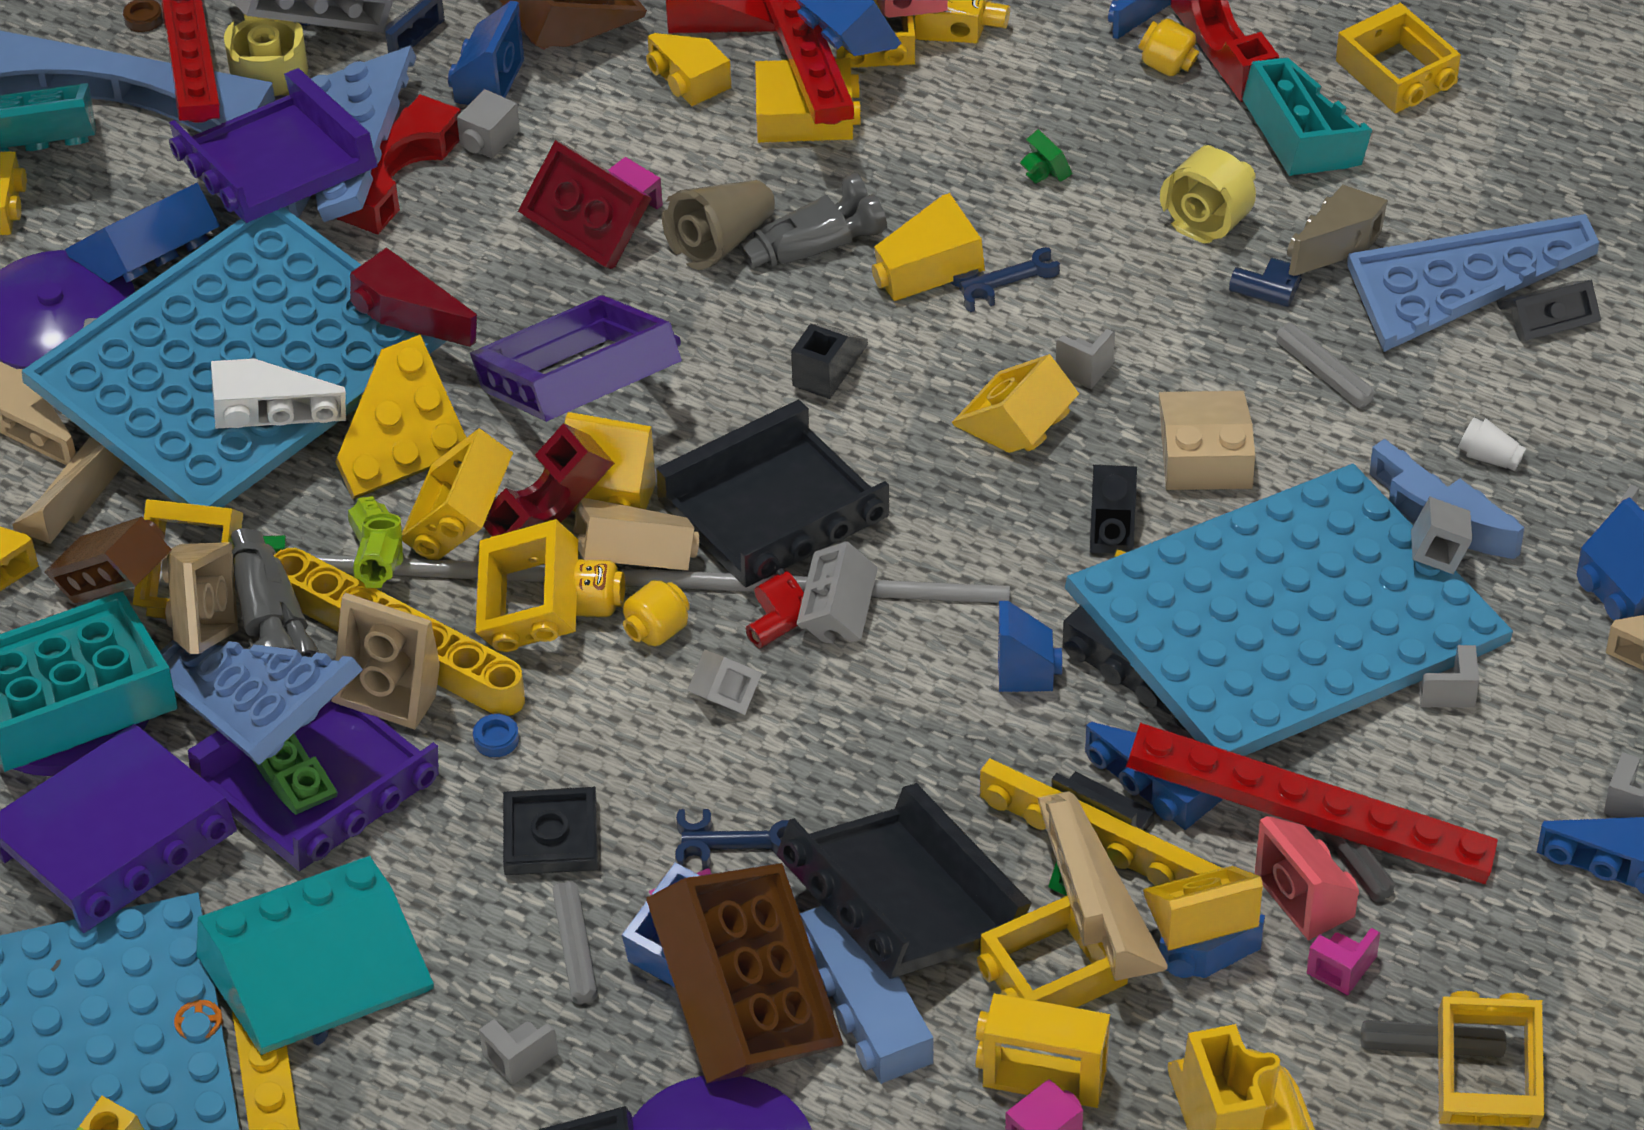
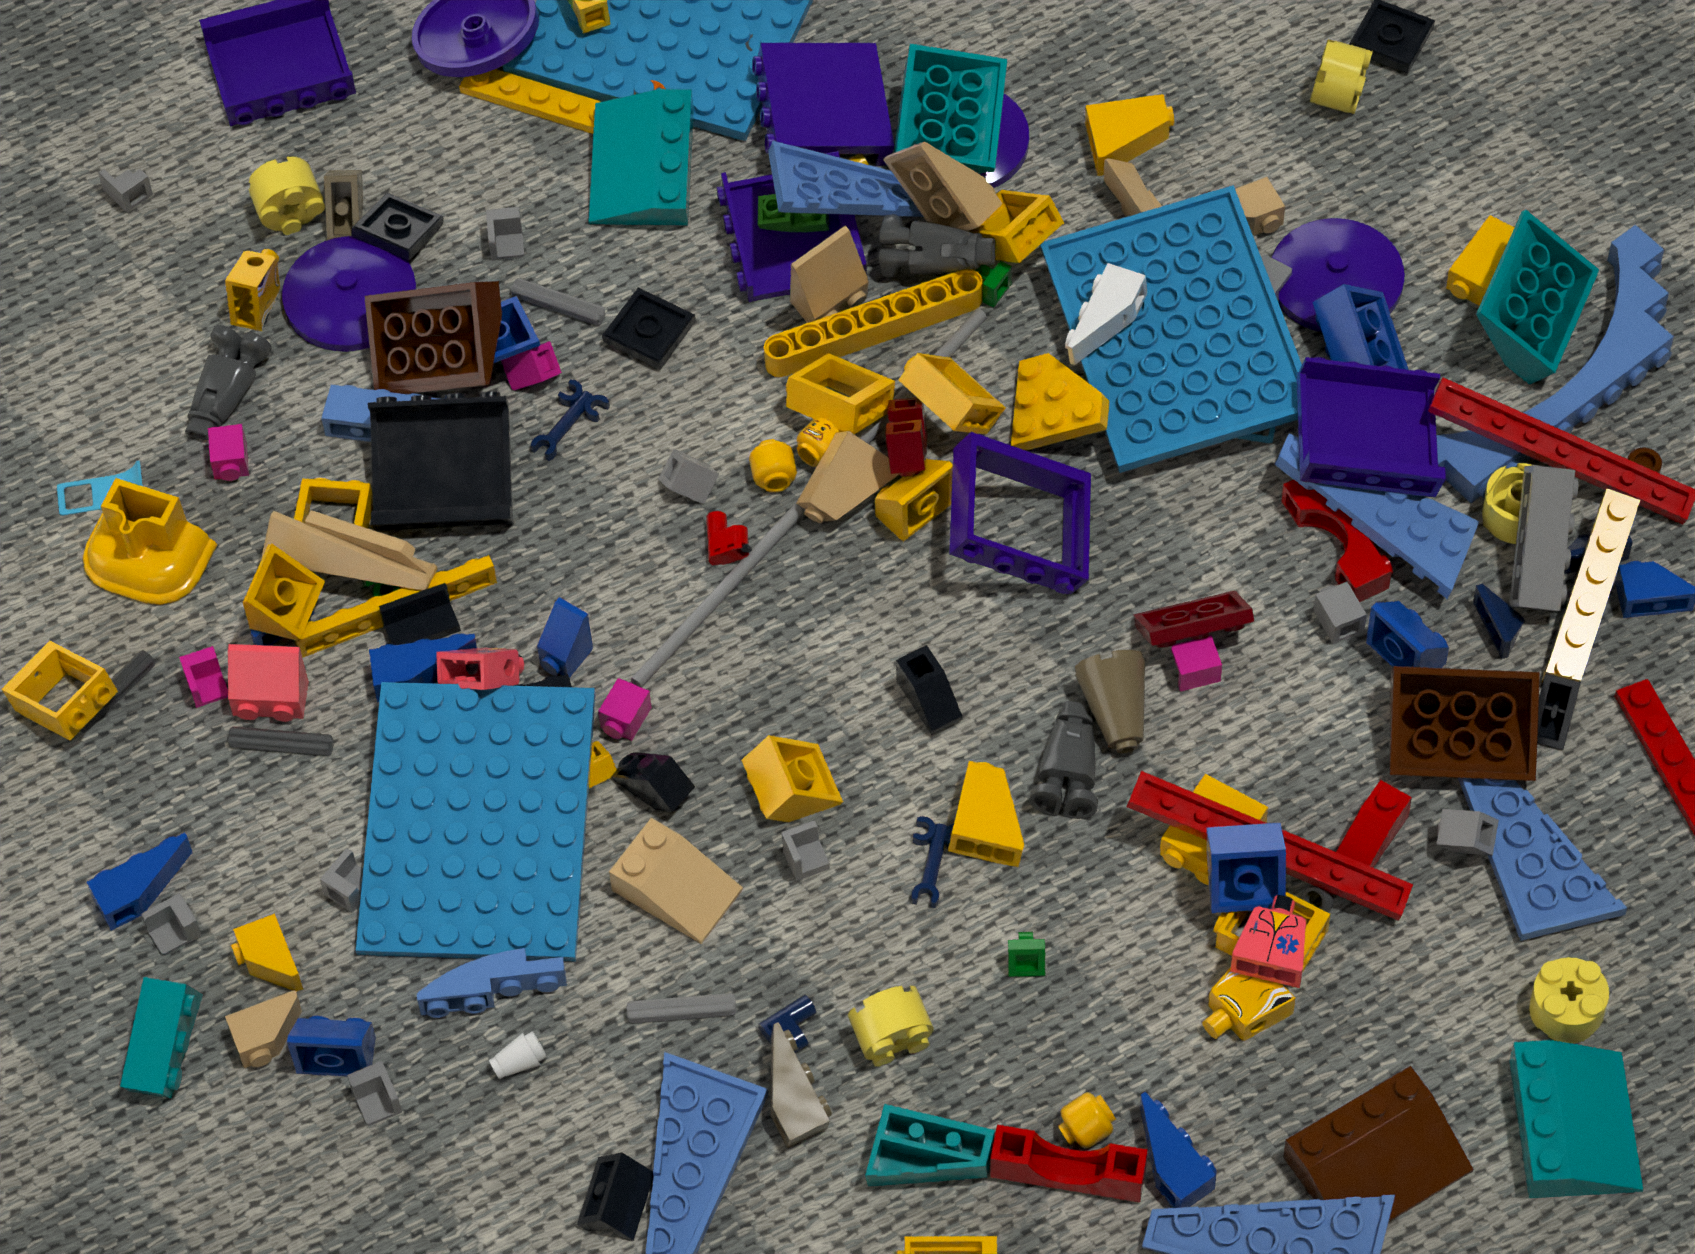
camera: 125 degrees right, 10 degrees up
(109, 560) = (1021, 164): reddish brown brick -> none
(379, 542) = (967, 346): lime piece -> none
(410, 301) = (1150, 436): dark red slope -> none
(495, 735) = (750, 341): blue tile -> none
(689, 66) = (1310, 776): yellow slope -> none
(769, 494) = (821, 588): black panel -> none
(837, 593) = (703, 571): light grey hinge -> none
(1045, 1029) = (263, 465): yellow window -> none
(1048, 567) = (624, 710): none -> dark pink brick
(1123, 687) = (495, 667): none -> coral torso
(1312, 803) = (312, 721): red plate -> none
(1441, 535) = (450, 939): light grey brick -> none
(1587, 694) = (266, 953): none -> yellow slope

